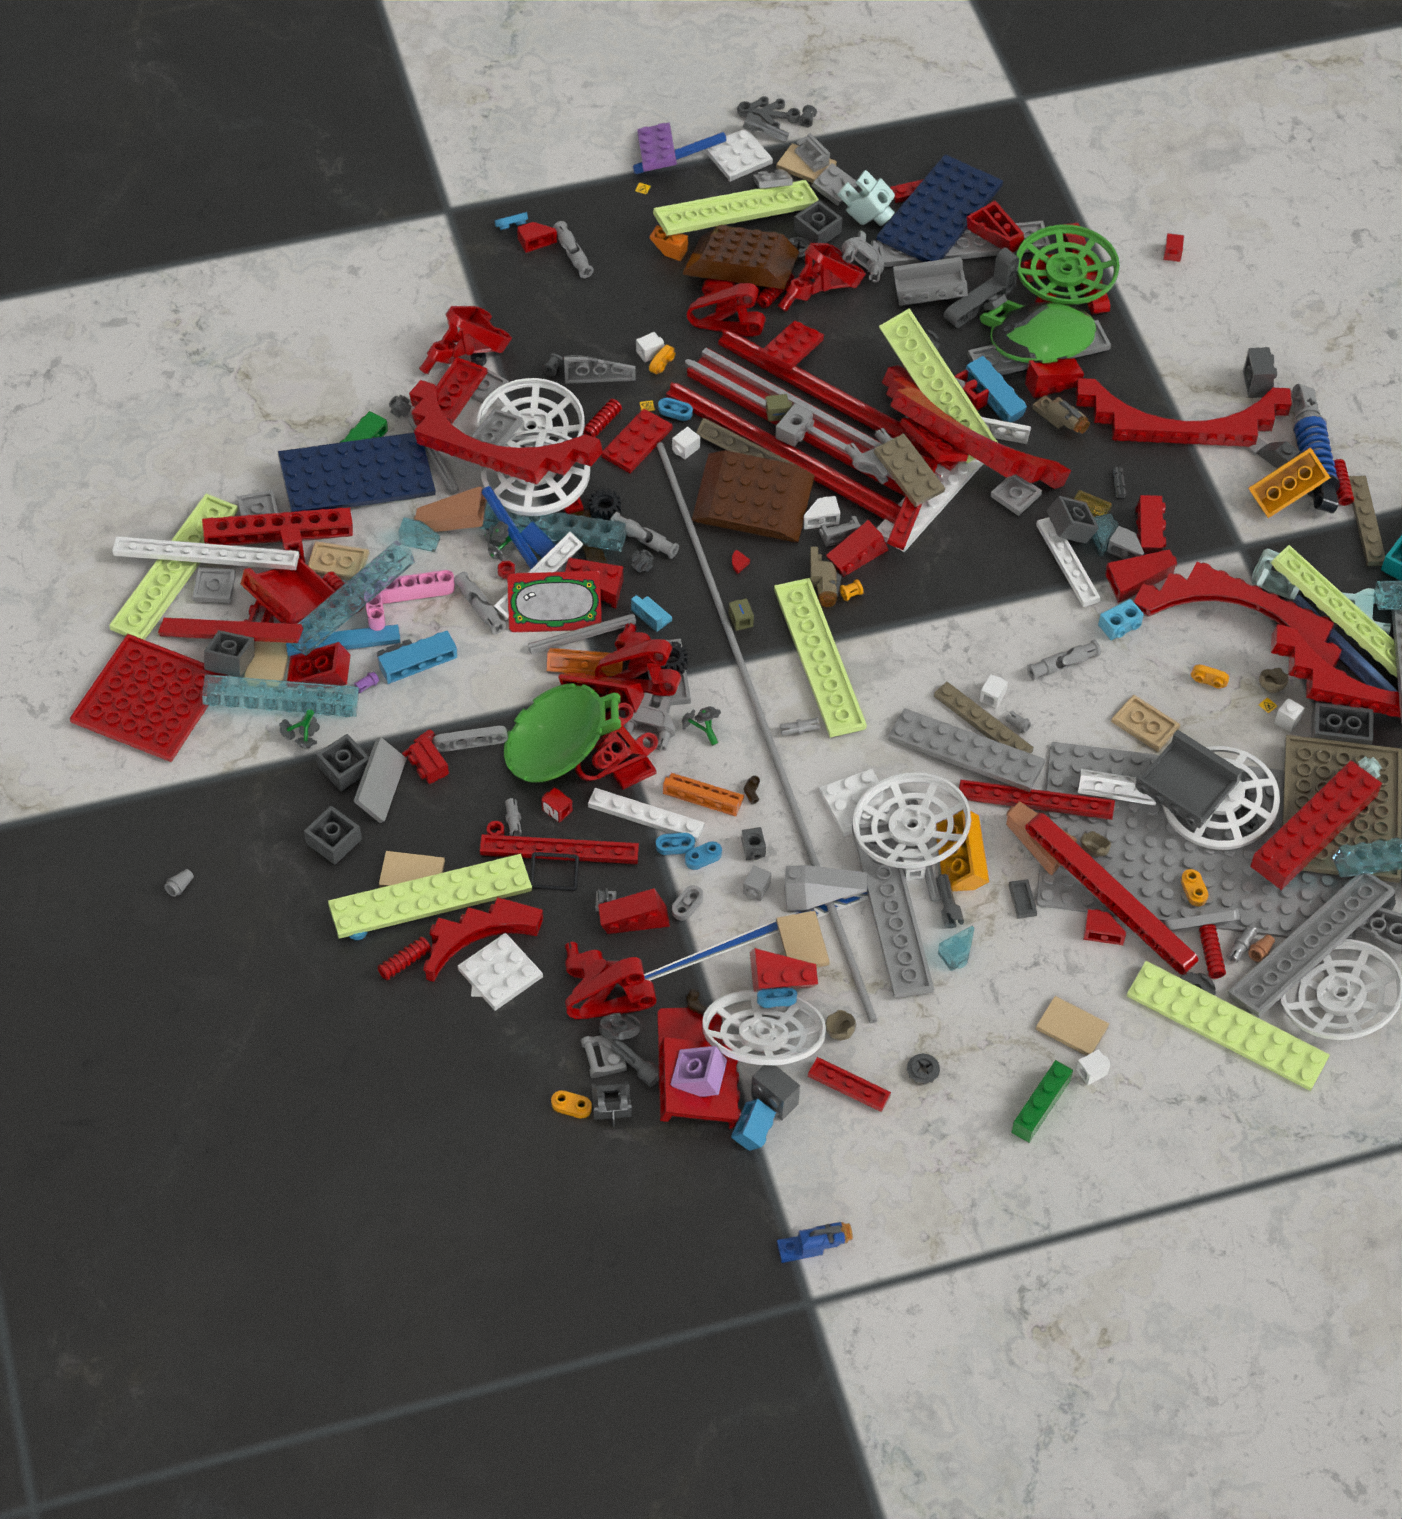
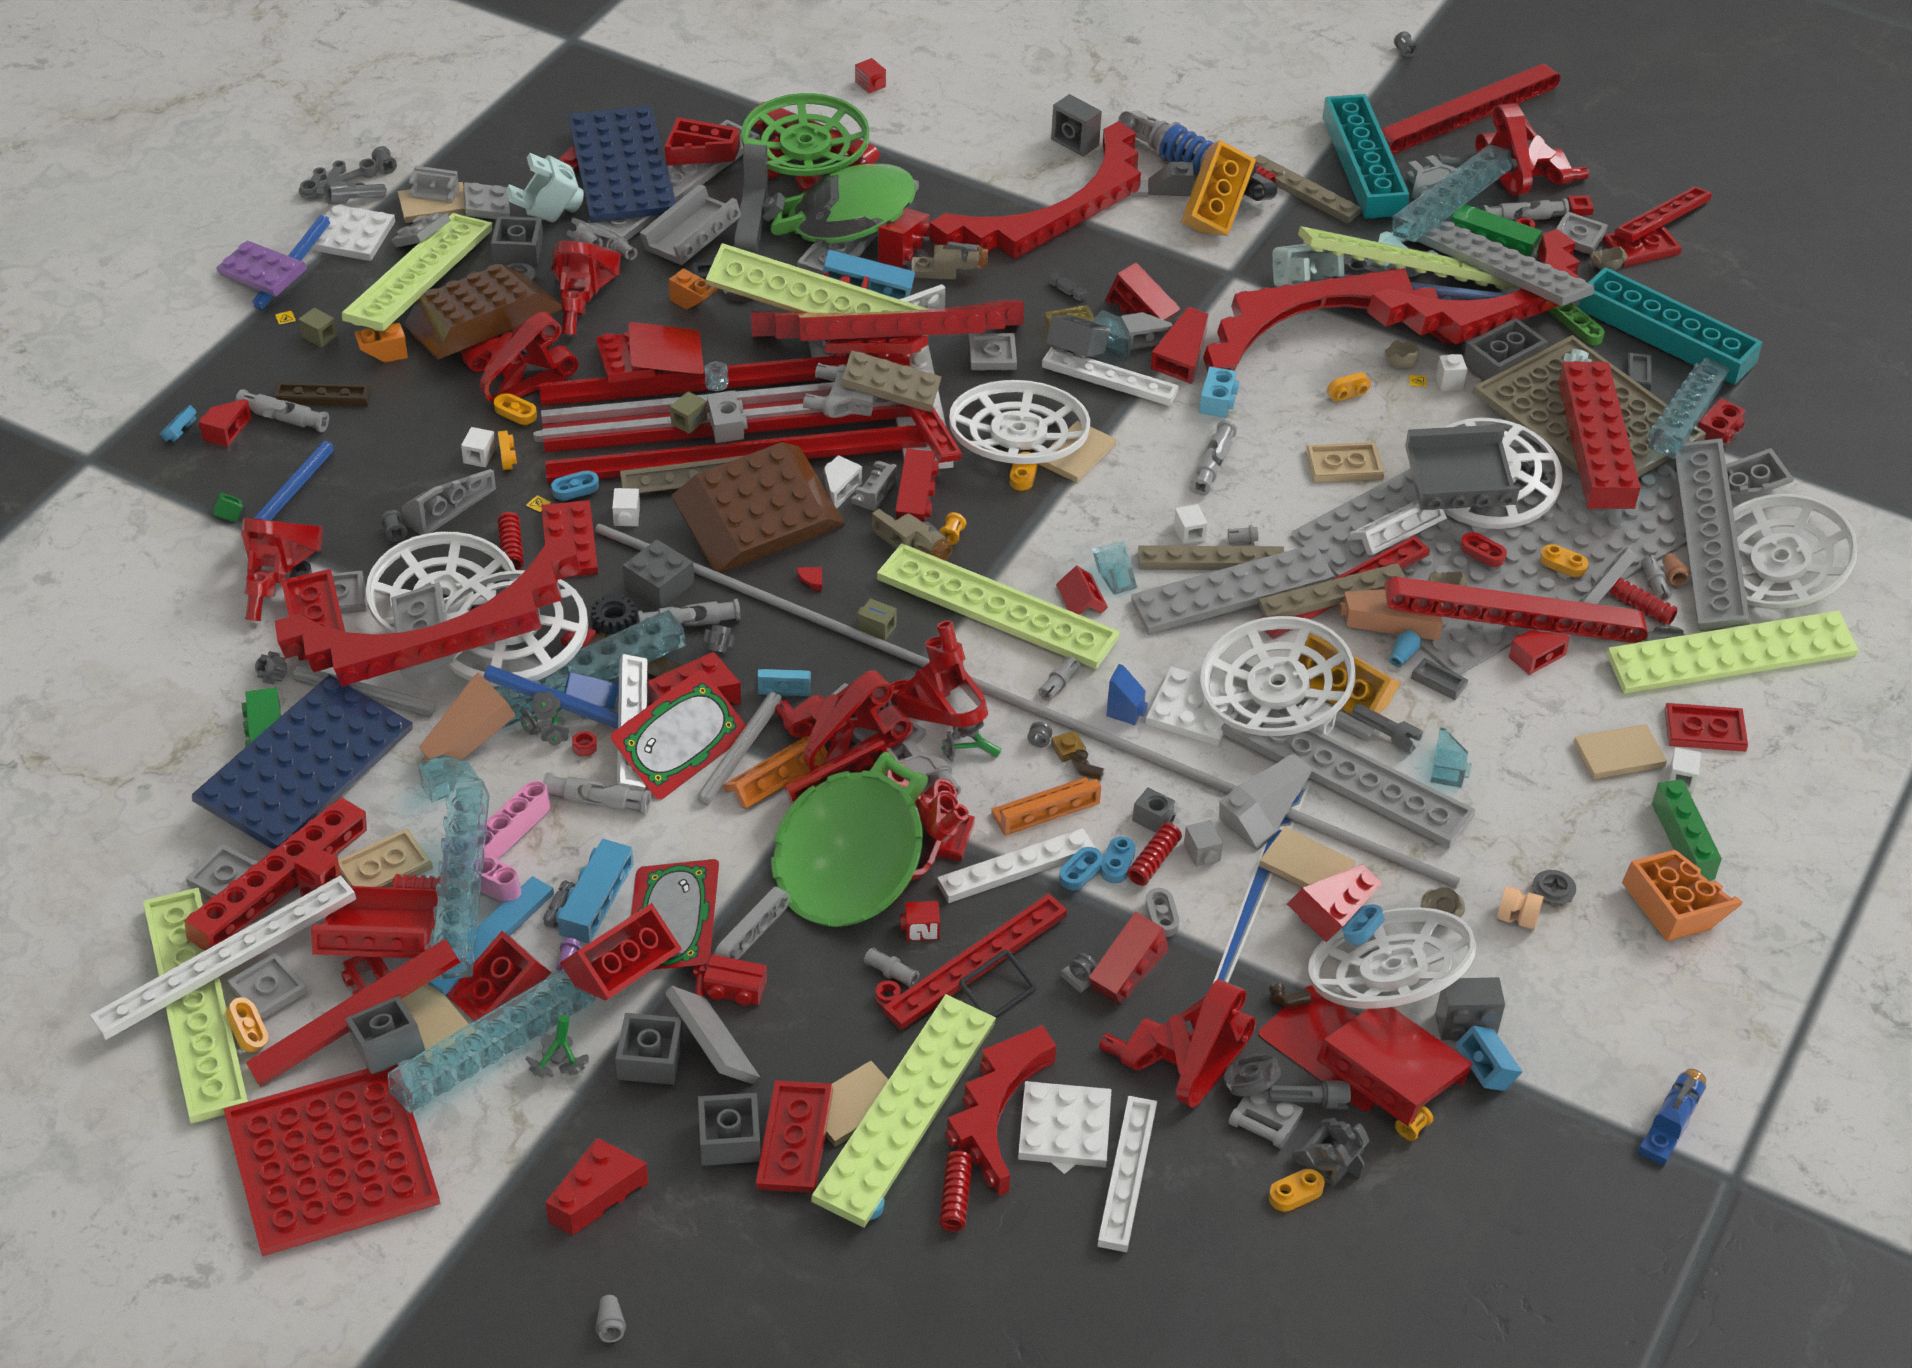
camera: 45 degrees left, 10 degrees down
(181, 599) = (248, 1026): none -> light orange plate
(241, 810) = (593, 1185): none -> red wedge
(360, 864) = (794, 1136): none -> red plate
(381, 701) = (622, 954): none -> red slope
(440, 700) = (686, 902): none -> sticker
(482, 291) = (227, 507): none -> green slope
(497, 1022) = (1127, 1174): none -> white plate
(532, 300) = (296, 481): none -> blue axle
(607, 253) = (323, 393): none -> dark brown tile
(646, 205) = (317, 327): none -> olive brick
(655, 497) = (658, 574): none -> dark grey brick
(673, 1124) = (1410, 1132): none -> light orange bush
(699, 339) = (515, 409): none -> light orange plate
(699, 1071) = (1397, 1041): lavender slope -> none
(715, 674) = (926, 691): none -> red connector
(723, 868) = (1154, 854): none -> red piece
(747, 751) = (1045, 734): none -> dark grey bush
(757, 768) = (1066, 745): none -> pearl gold plate
(817, 765) = (1125, 697): none -> blue slope
(818, 355) = (665, 348): none -> red sticker
(821, 394) = (716, 376): none -> clear light blue wheel
(849, 1084) = (1517, 953): red plate -> none
(877, 318) = (688, 289): none -> orange slope
(878, 685) = (1081, 591): none -> red panel
(884, 1065) = (1520, 907): none -> light nougat wheel
(914, 684) = (1115, 567): none -> clear light blue slope
(943, 583) = (1022, 475): none -> light orange plate
(969, 547) = (1019, 428): none -> white dish
(983, 1131) = (1677, 895): none -> orange wedge
(988, 595) = (1083, 459): none -> tan tile
(1012, 794) = (1326, 593): none -> dark tan plate
(1024, 863) = (1404, 647): none -> dark azure cone
(1147, 1055) = (1706, 727): none -> red tile
(1149, 843) = (1483, 549): none -> red plate

